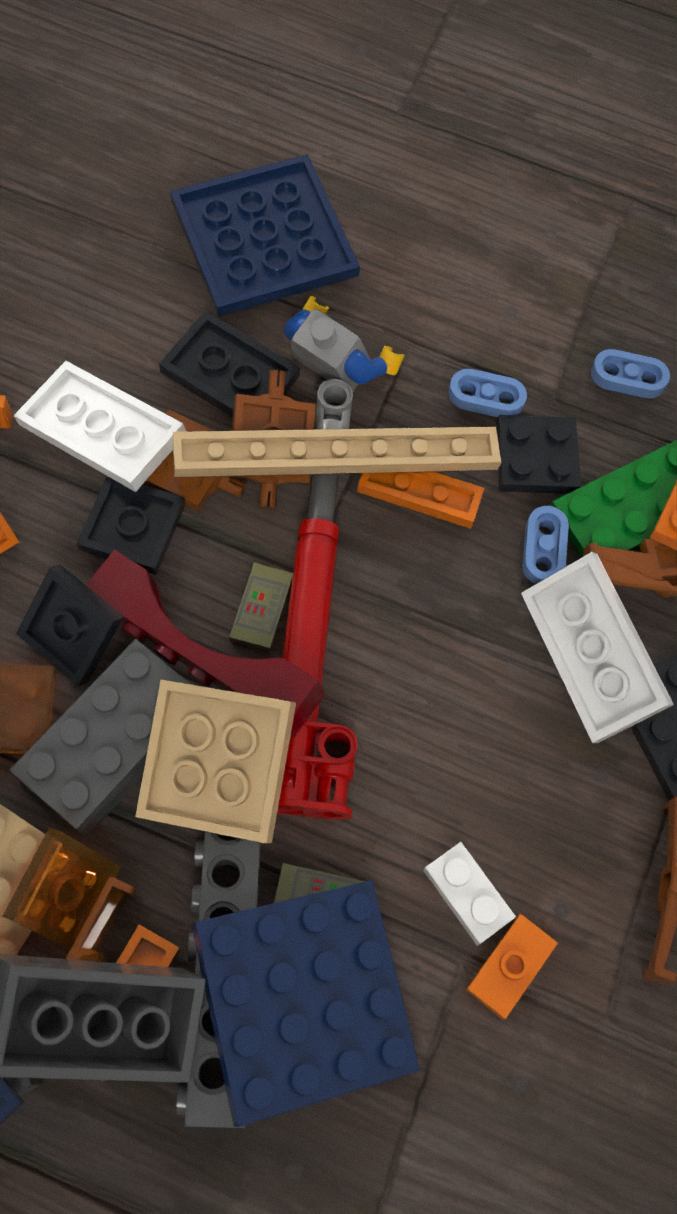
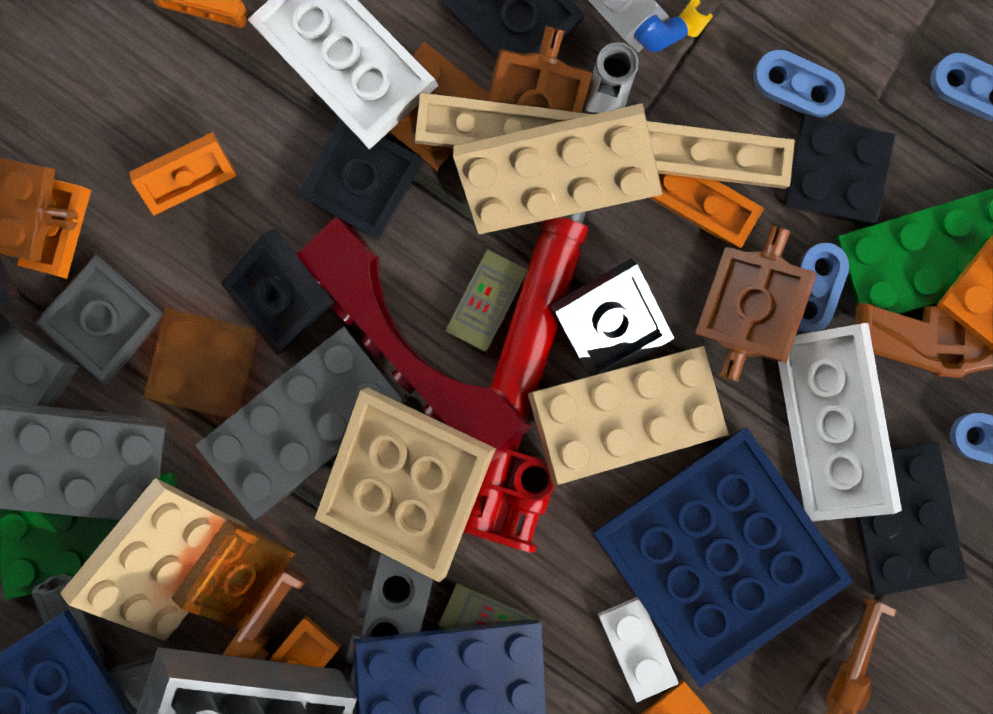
camera: 20 degrees right, 20 degrees up
(303, 475) = (558, 169): none -> tan plate
(377, 598) = (612, 320): none -> plate
(407, 675) = (627, 415): none -> tan plate
(498, 563) = (756, 304): none -> dark orange plate
(525, 790) = (723, 556): none -> dark blue plate

